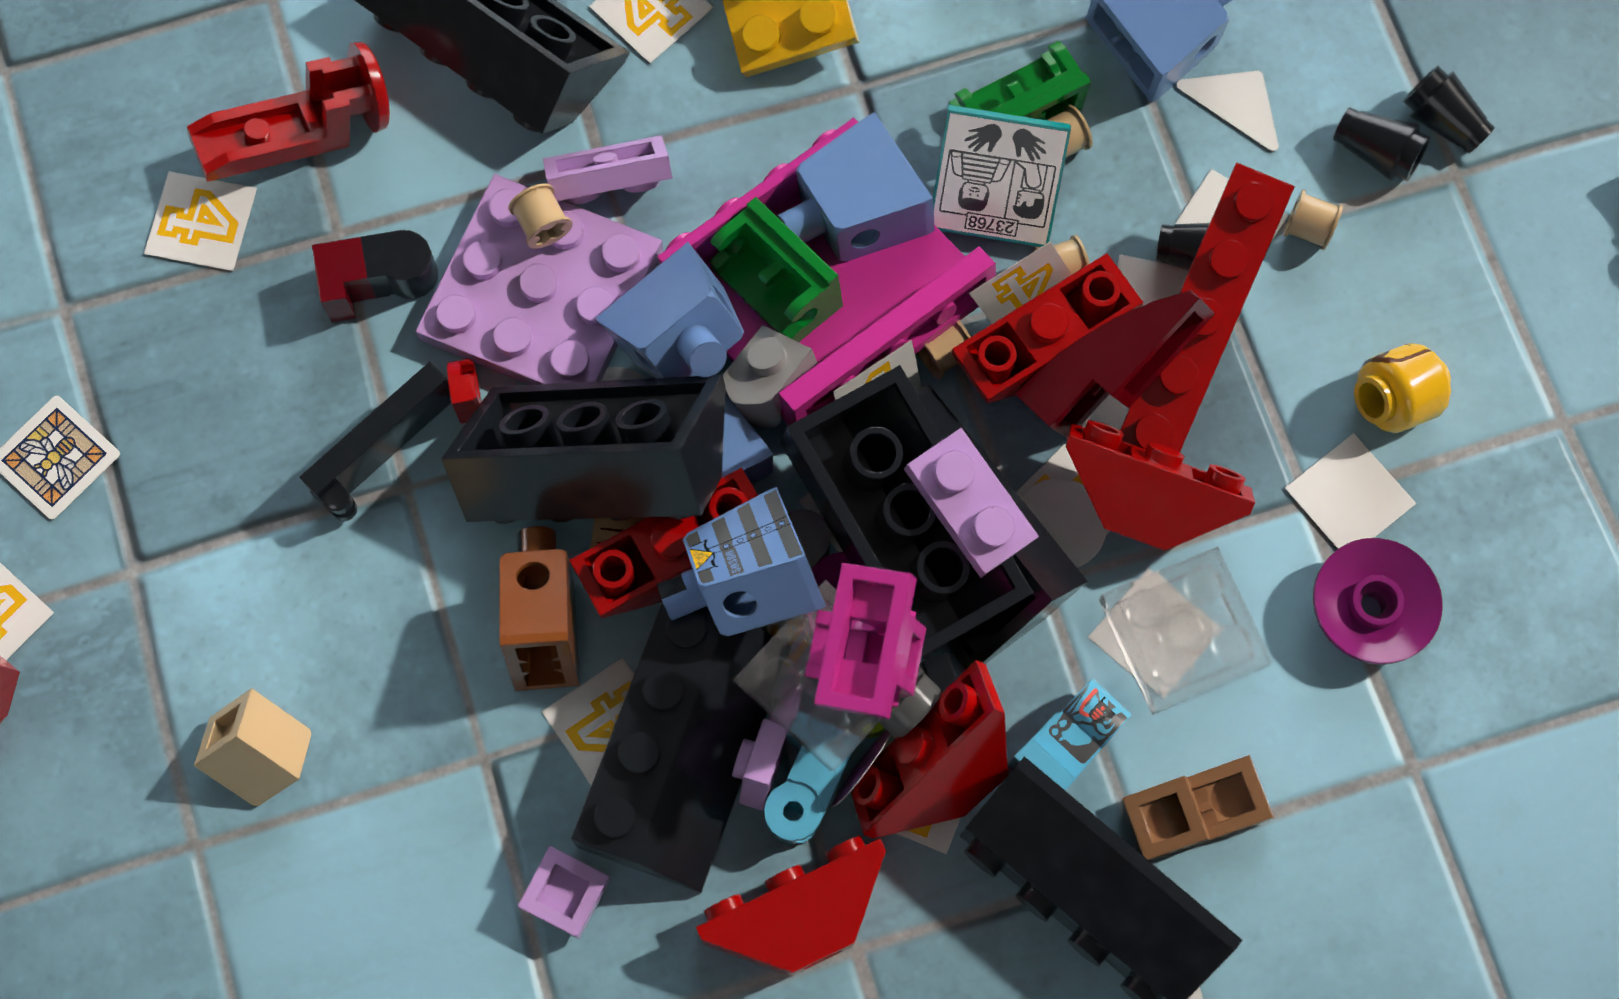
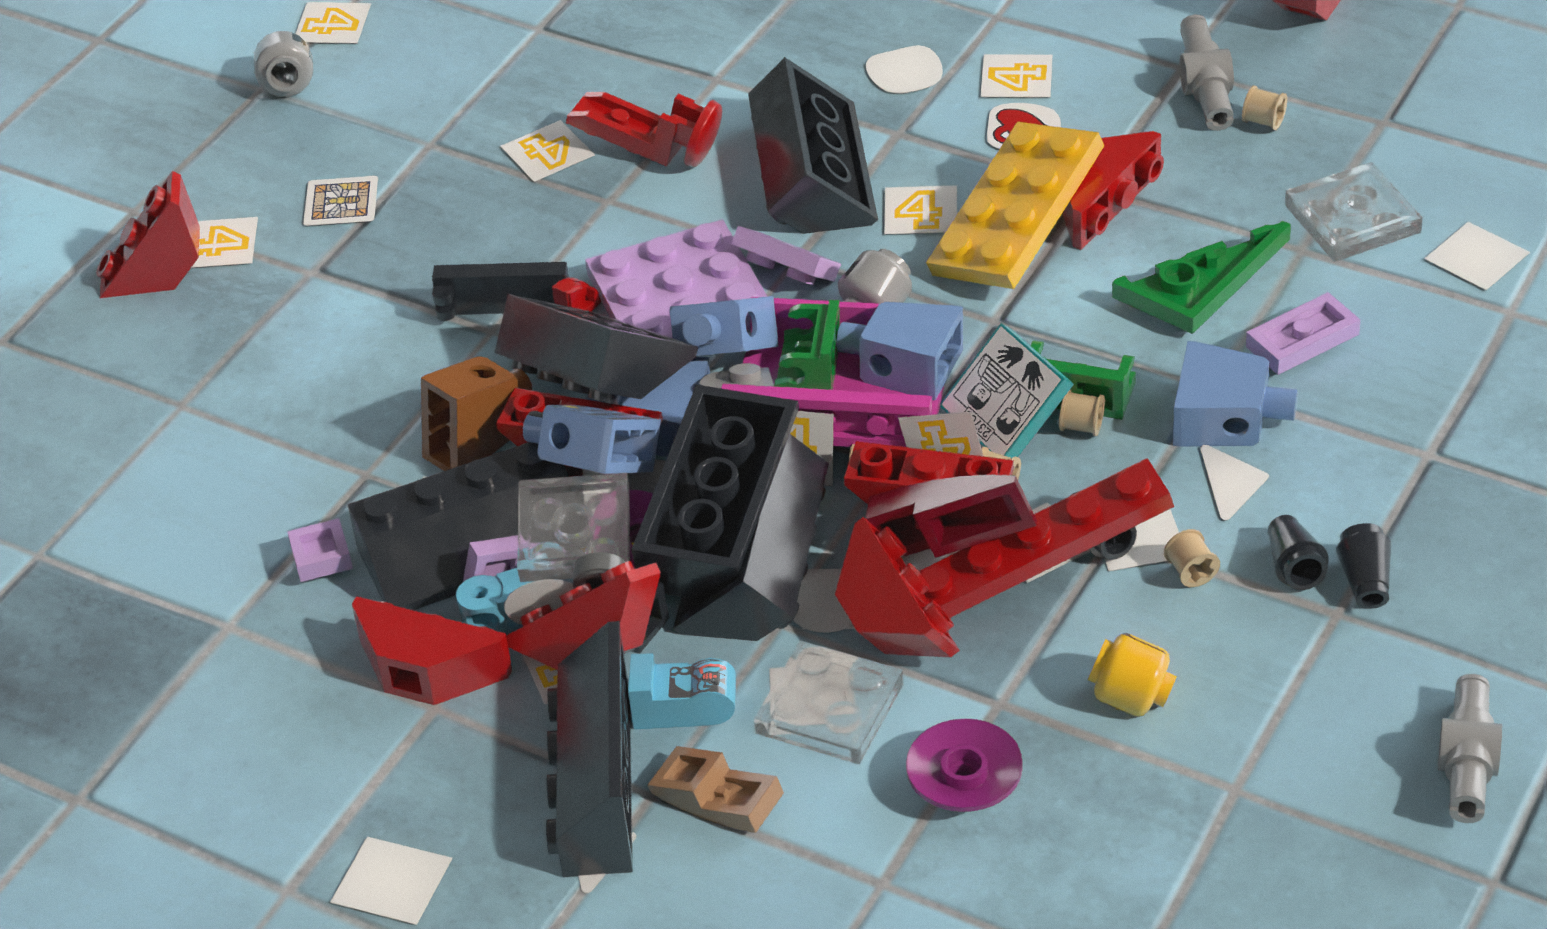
camera: 55 degrees right, 30 degrees down
(253, 748) = (260, 372): tan panel -> none
(372, 269) = (595, 216): leg -> none
(540, 215) = (711, 238): tan axle -> none
(734, 141) = (876, 278): none -> light grey head
(868, 644) = (586, 462): dark pink tile -> none
(971, 502) = (751, 490): lavender plate -> none
(1350, 494) = (1036, 718): white sticker -> none

